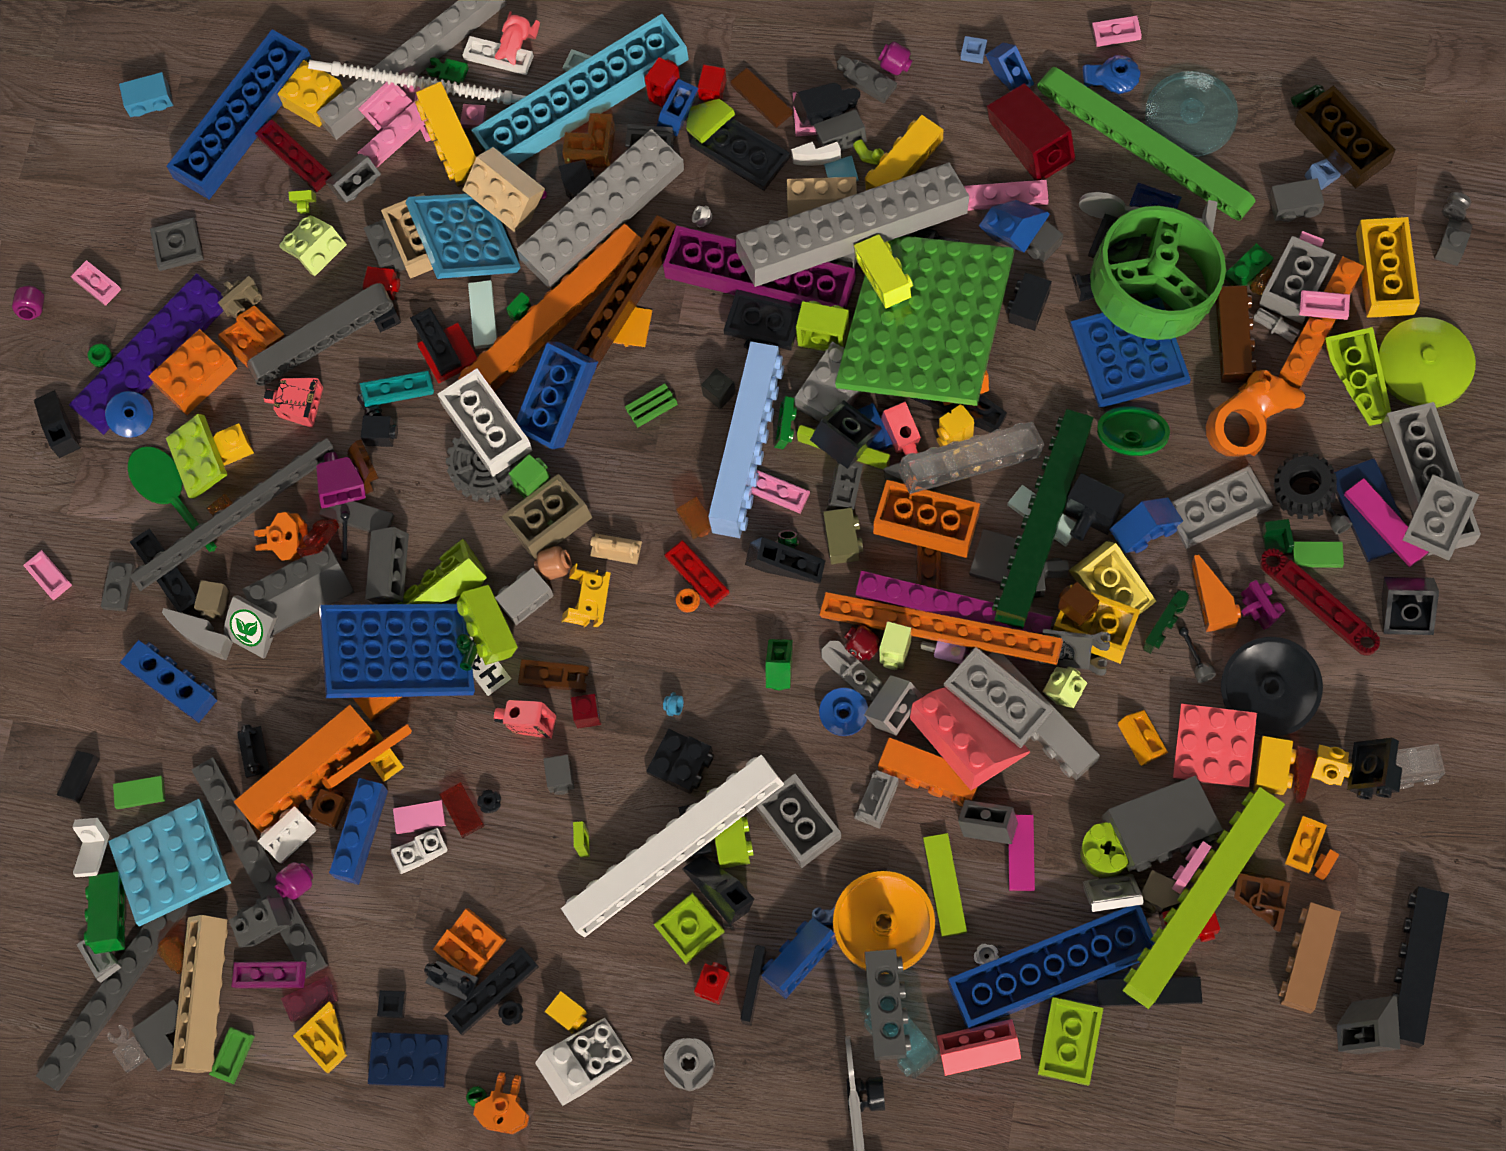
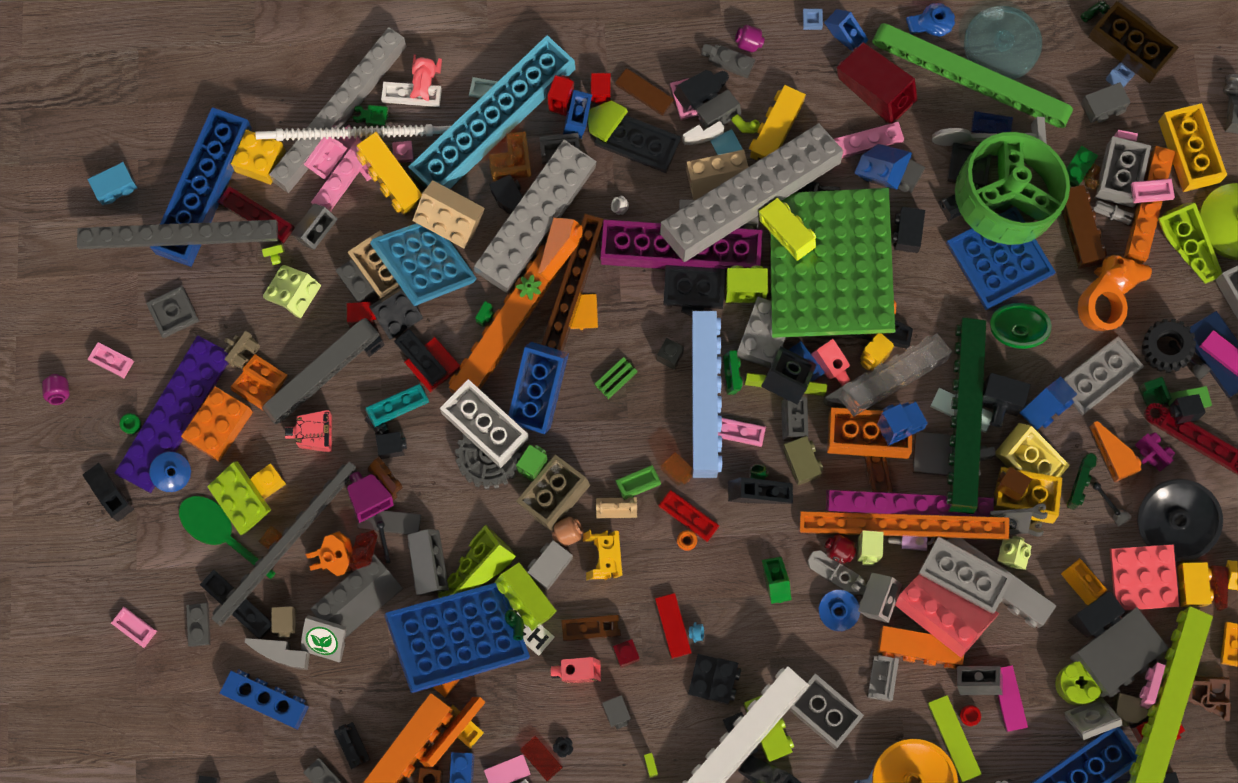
camera: 20 degrees left, 5 degrees up
(200, 157) = (177, 234): none -> dark grey plate
(419, 287) = (395, 313): none -> black plate
(482, 314) = (454, 325): light aqua tile -> none
(574, 285) = (529, 290): none -> bright green plant
(618, 244) = (561, 242): none -> orange slope
(647, 525) = (638, 482): none -> bright green tile
(648, 692) = (673, 626): none -> red tile
(961, 508) = (901, 421): none -> blue brick
(970, 862) = (970, 715): none -> red plate
(1144, 773) = (1097, 615): none -> black slope
(1309, 561) = (1187, 409): none -> black brick

